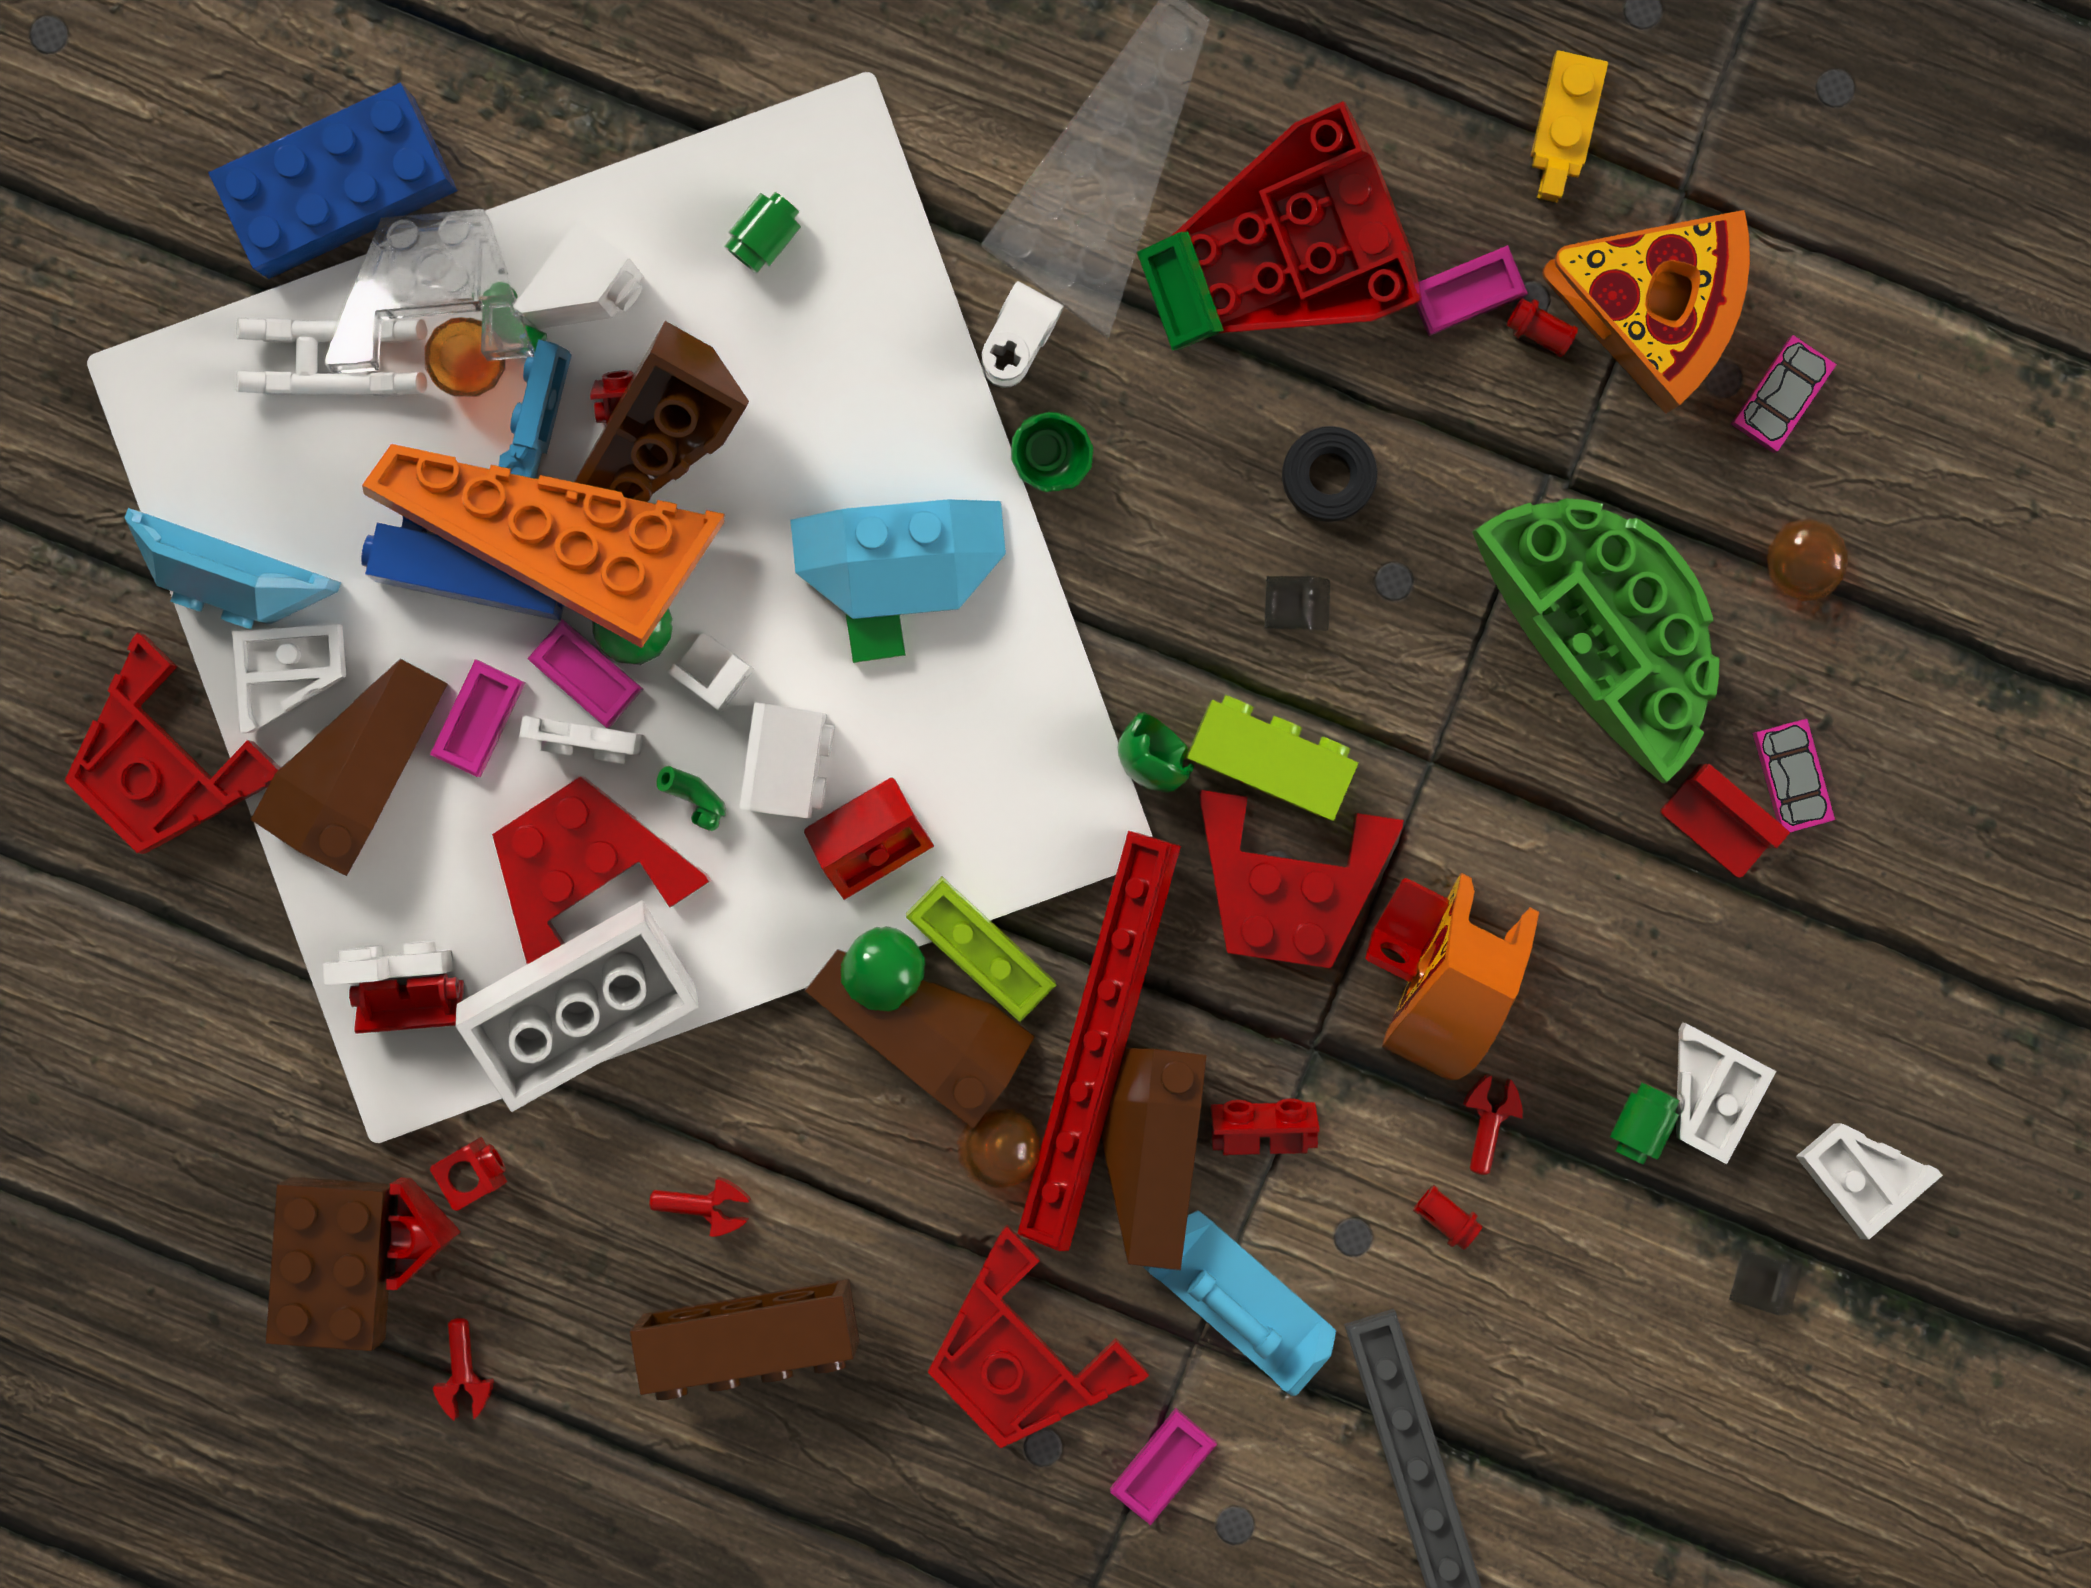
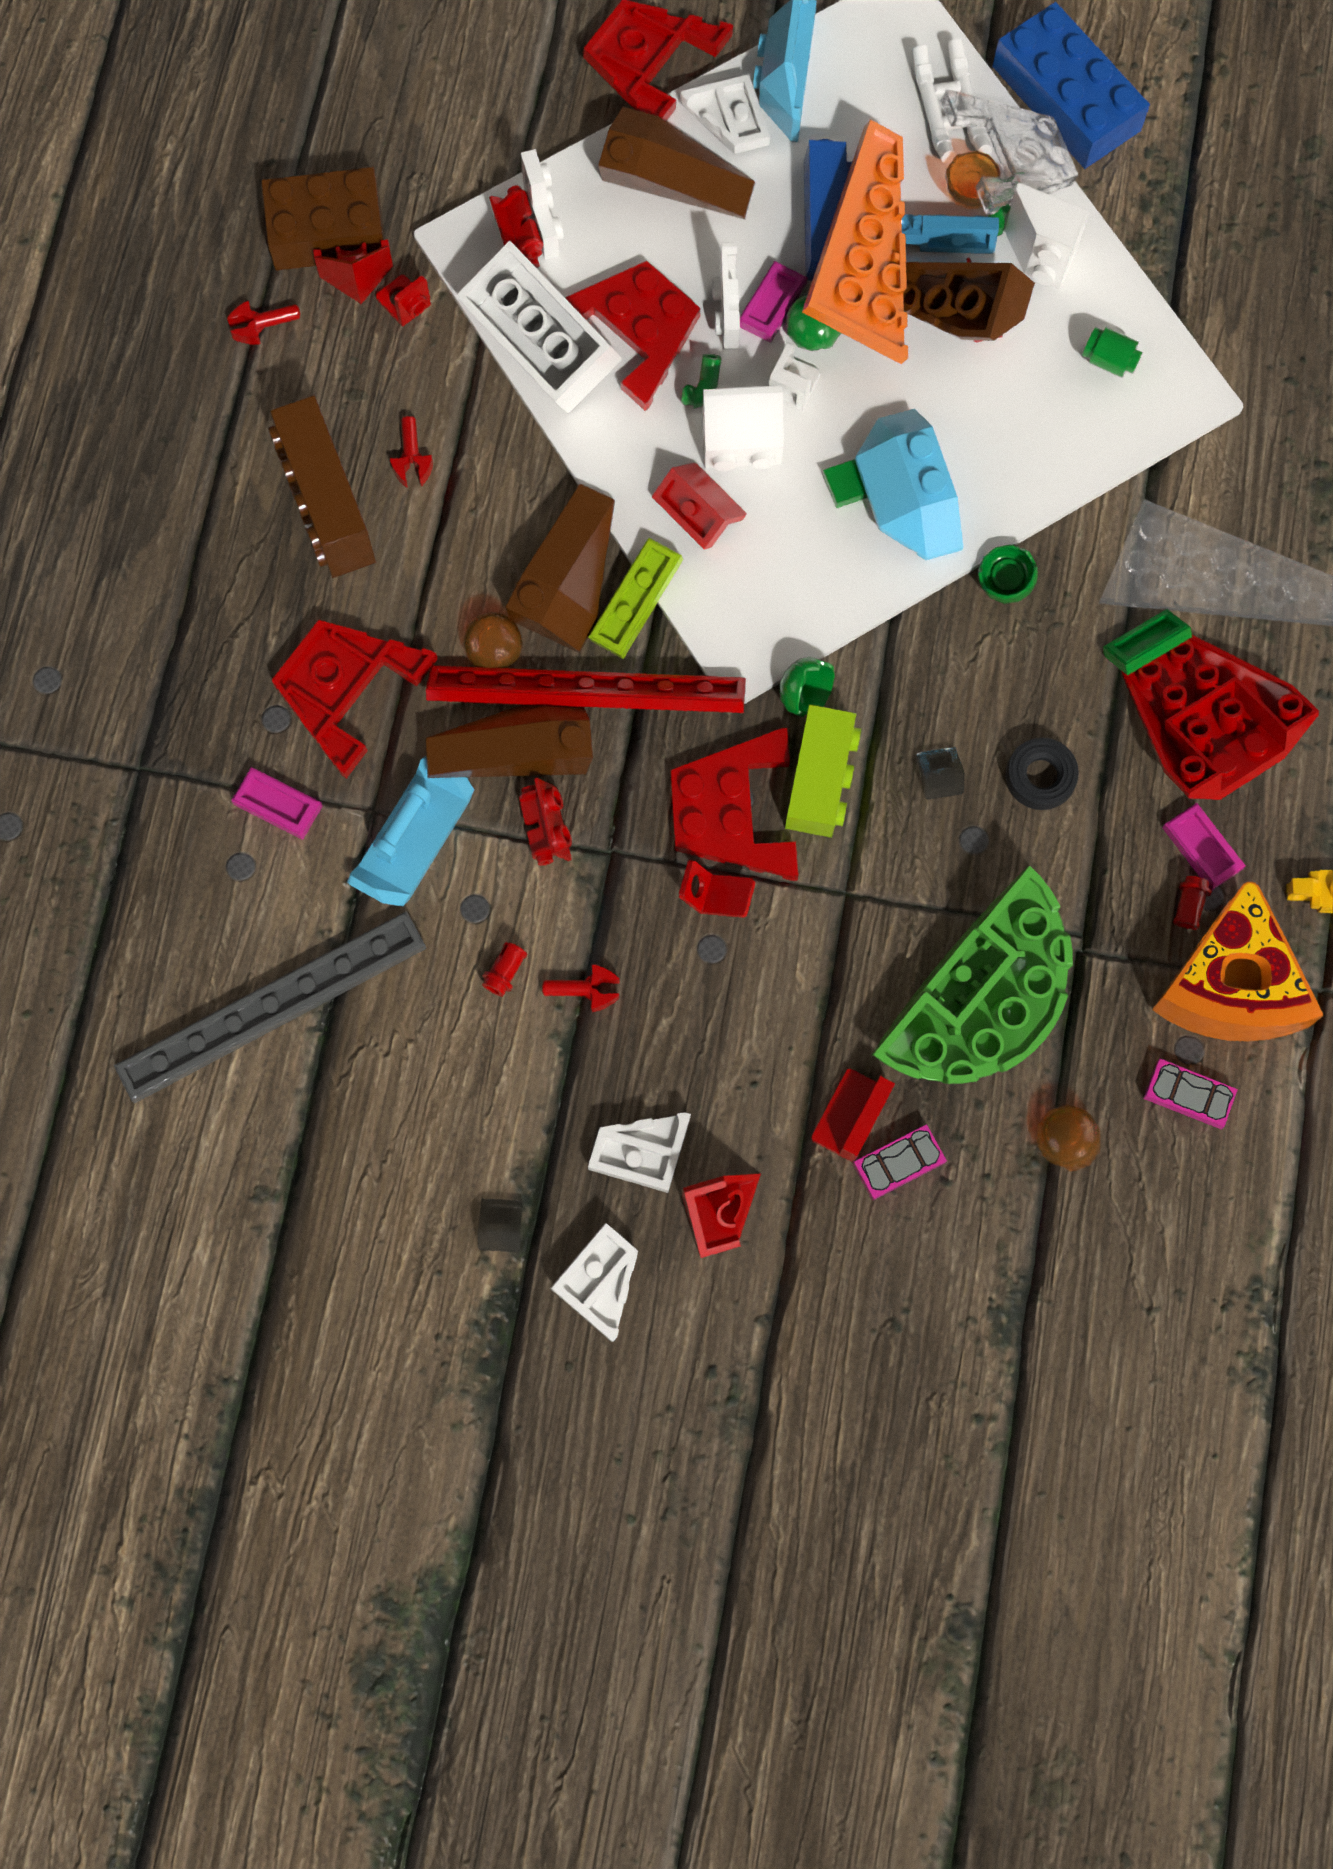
camera: 75 degrees right, 15 degrees down
(477, 718) = (708, 232): dark pink tile -> none
(882, 968) = (608, 527): green hair -> none
(1021, 327) = (1087, 538): white piece -> none
(1460, 989) = (684, 929): orange piece -> none
(1645, 1123) = (606, 1100): green brick -> none
(1809, 1013) = (719, 1211): none -> red slope

